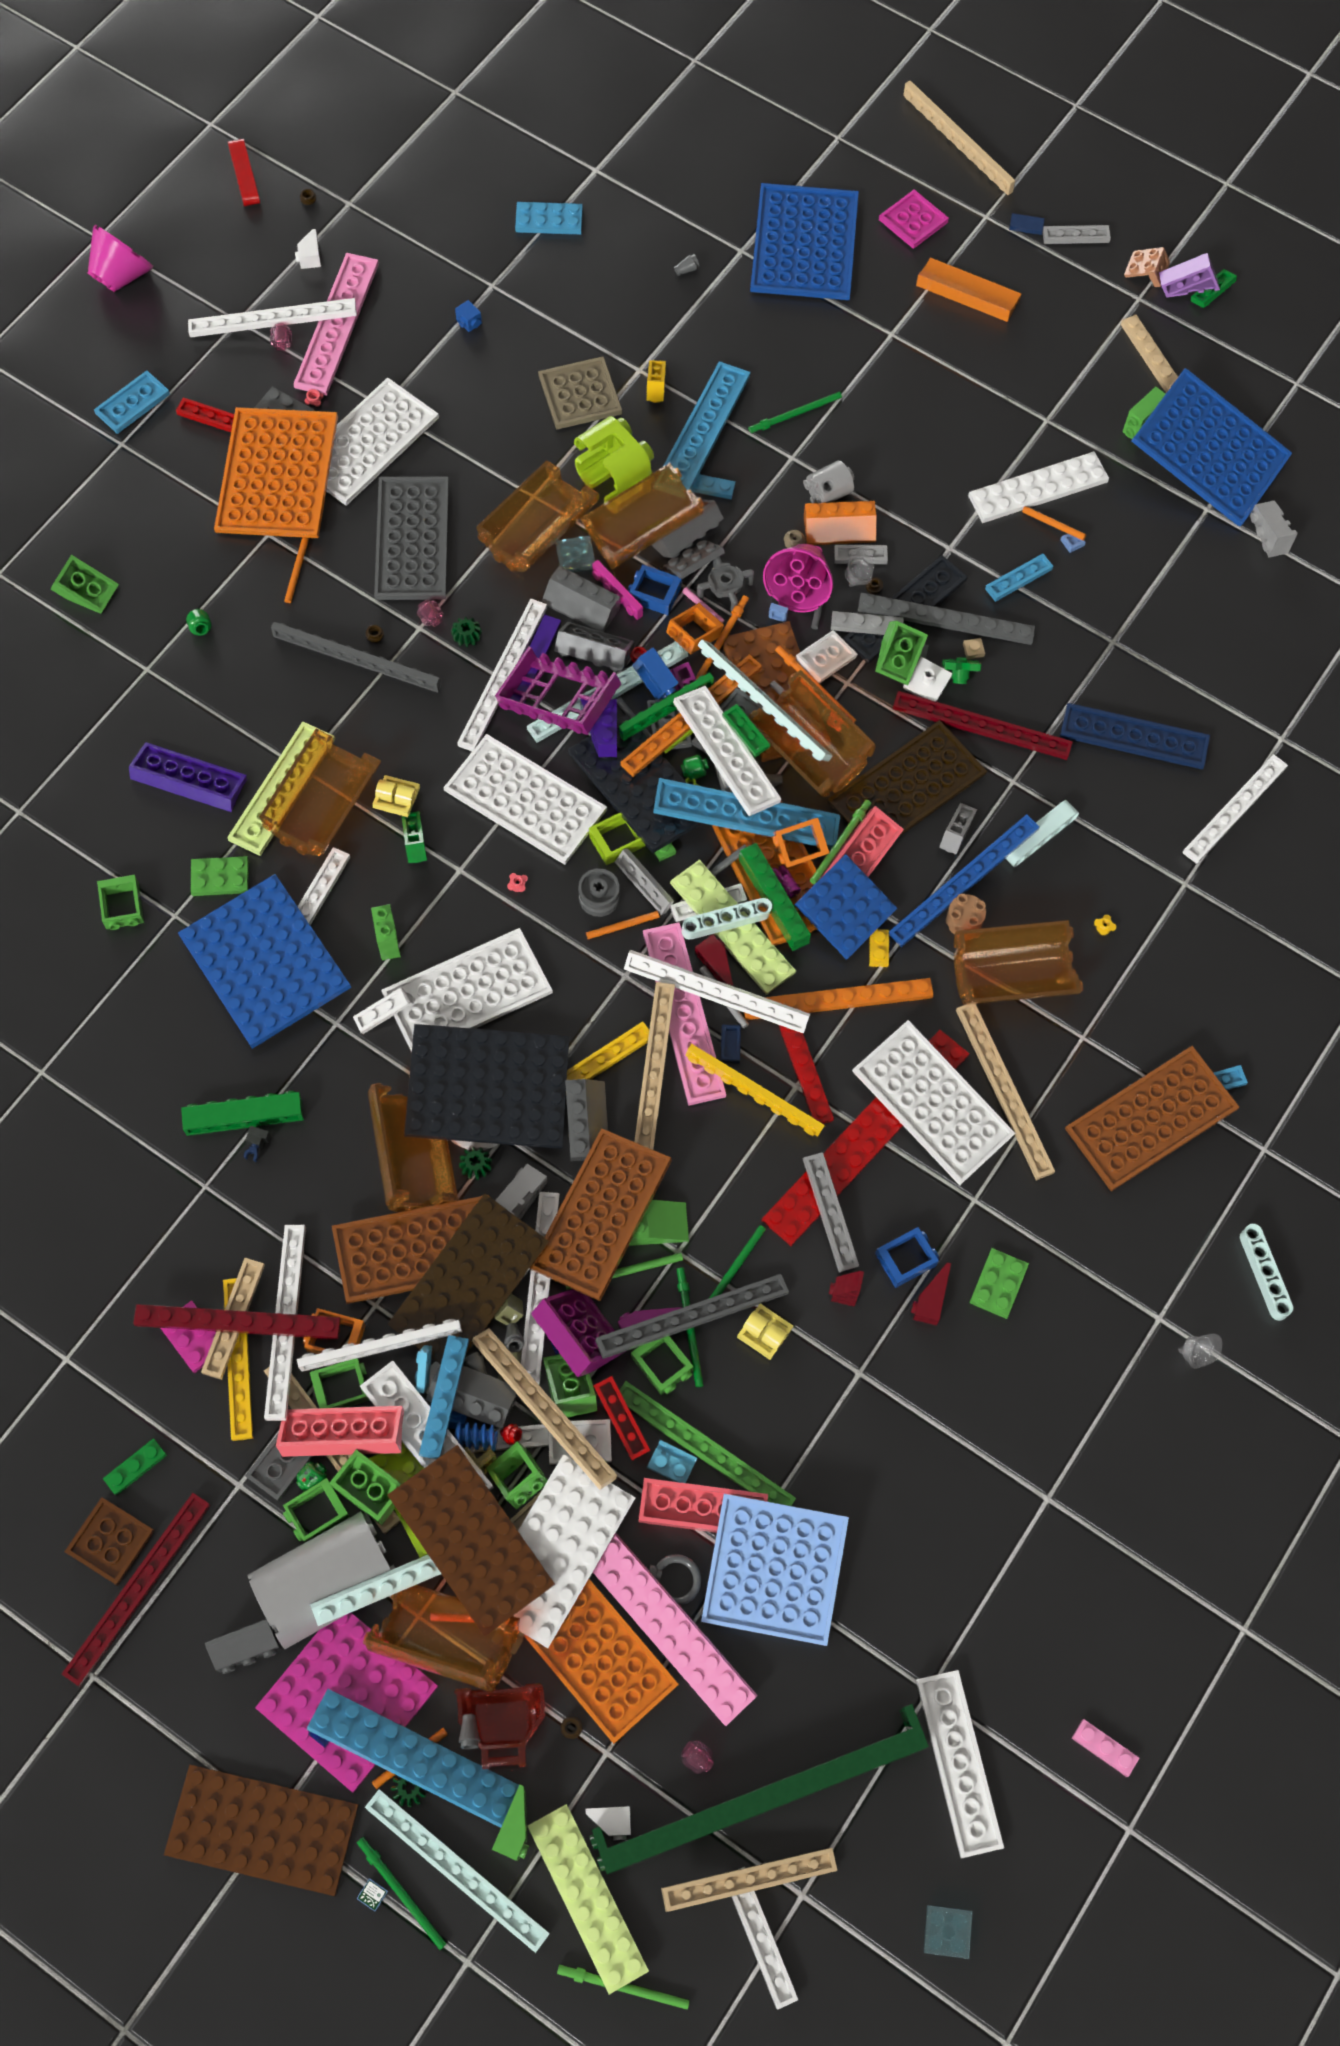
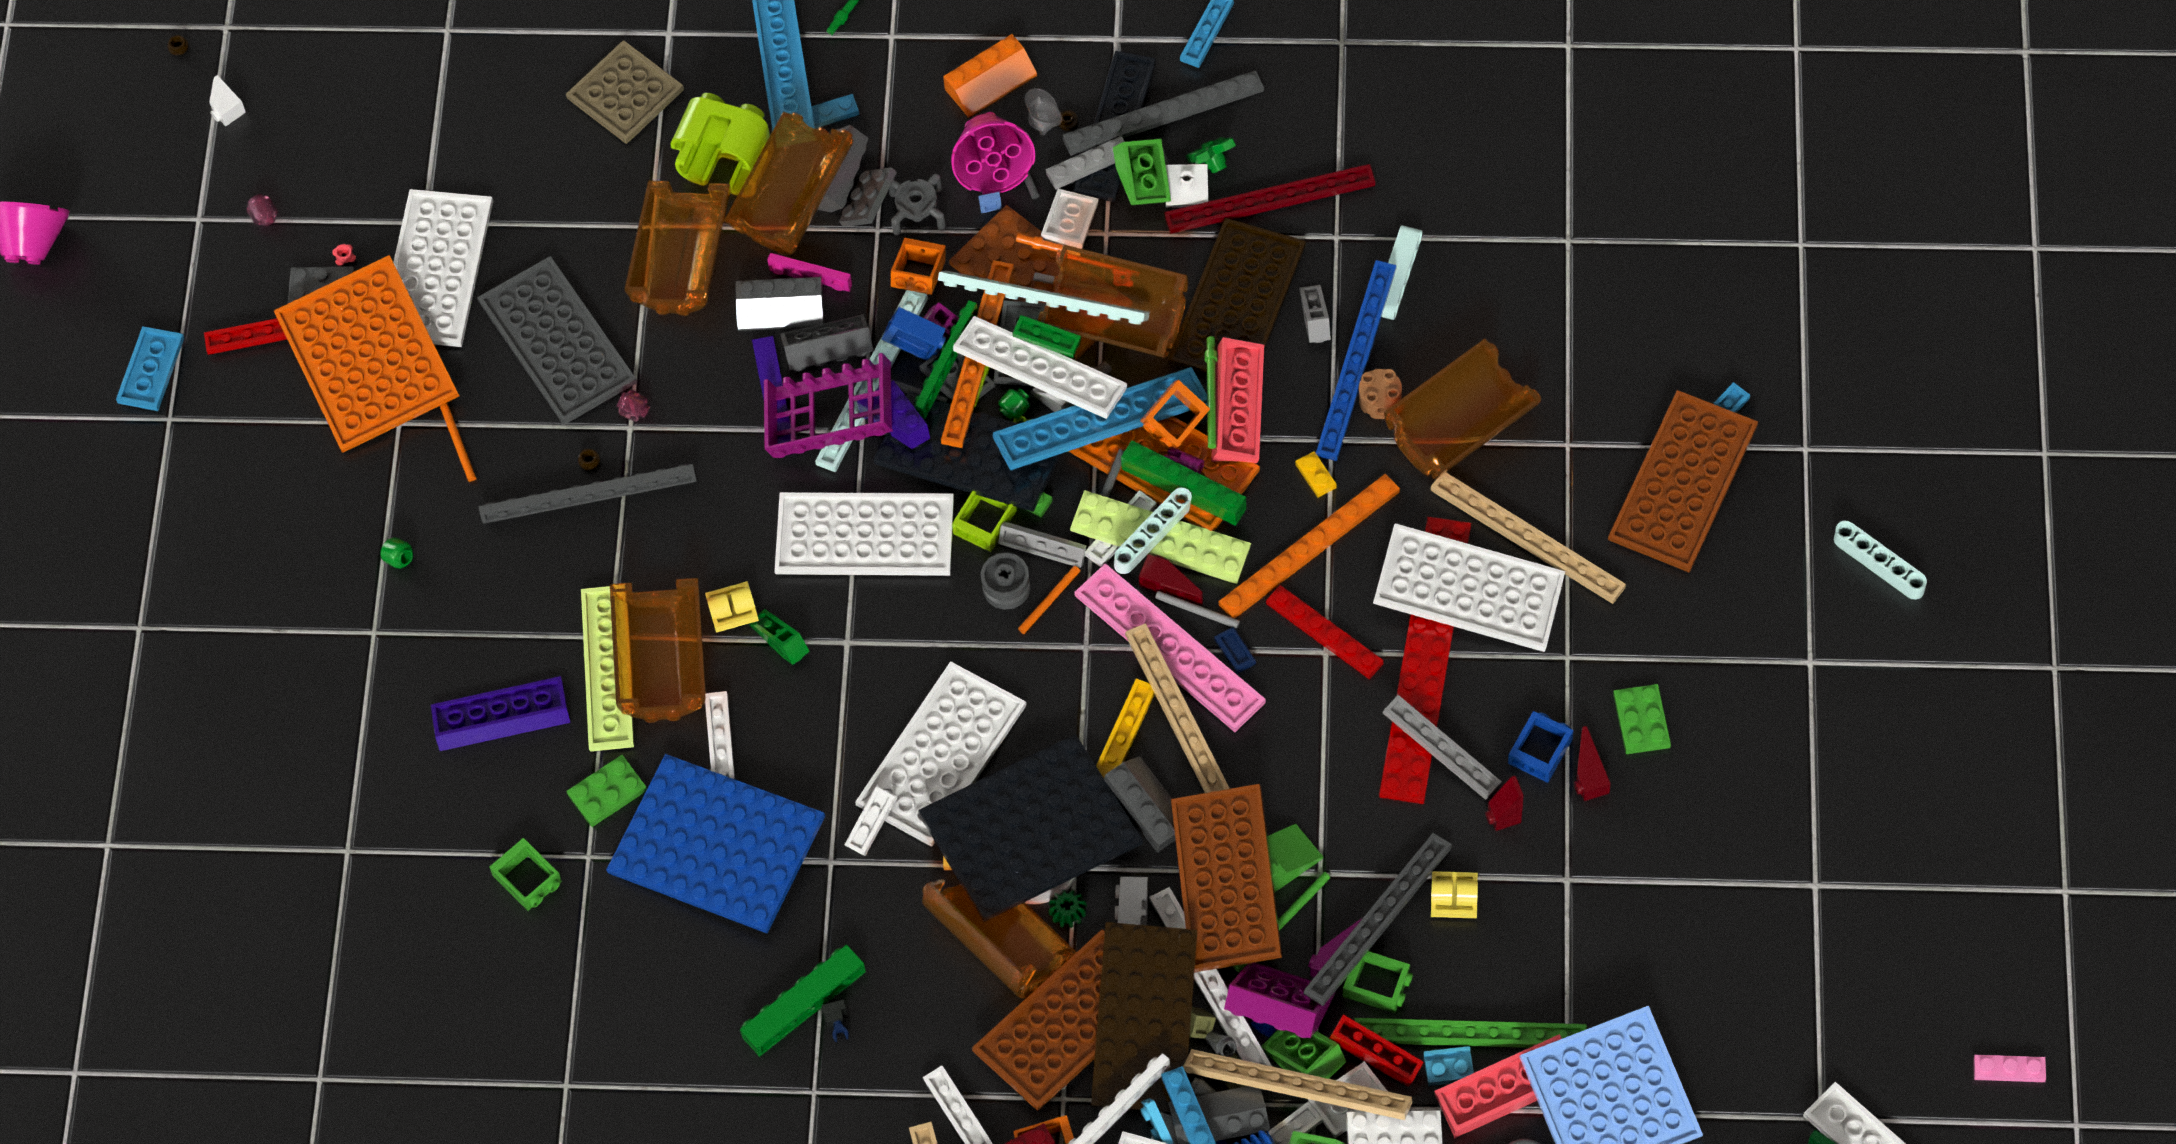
camera: 25 degrees left, 5 degrees down
(84, 585) = (244, 585): bright green slope -> none
(243, 172) = (87, 57): red beam -> none
(270, 317) = (238, 195): white plate -> none
(333, 334) = (310, 163): bright pink plate -> none
(385, 932) = (820, 737): bright green window -> none
(466, 631) = (691, 399): dark green gear -> none
(468, 316) = (448, 77): blue brick -> none
(511, 1434) = (1281, 1129): red plate -> none
(513, 652) = (752, 425): white plate -> none
(520, 887) = (915, 625): coral plate -> none
(575, 553) = (741, 260): clear light blue plate -> none
(637, 652) = (877, 325): red plate -> none
(650, 602) = (851, 265): blue window -> none
(656, 381) = (697, 34): yellow slope -> none
(683, 1289) = (1350, 903): green bar -> none
(696, 600) = (900, 237): bright pink bar -> none
(717, 991) = (1190, 606): white plate -> none
(736, 613) = (949, 227): orange bar -> none
(739, 1261) = (1384, 846): green bar -> none
(759, 1093) = (1290, 678): yellow plate -> none
(794, 534) = (954, 125): dark tan plate -> none
(830, 483) = (953, 41): light grey cylinder -> none
(843, 552) = (1015, 104): light grey plate -> none
(845, 906) = (1259, 451): blue plate -> none
(973, 648) = (1209, 127): tan plate -> none
(1103, 930) = (1518, 330): yellow plate -> none
(1135, 736) = (1425, 124): dark blue plate -> none
(1201, 1349) = (1867, 665): clear piece -> none
(1235, 809) = (1569, 140): white plate -> none

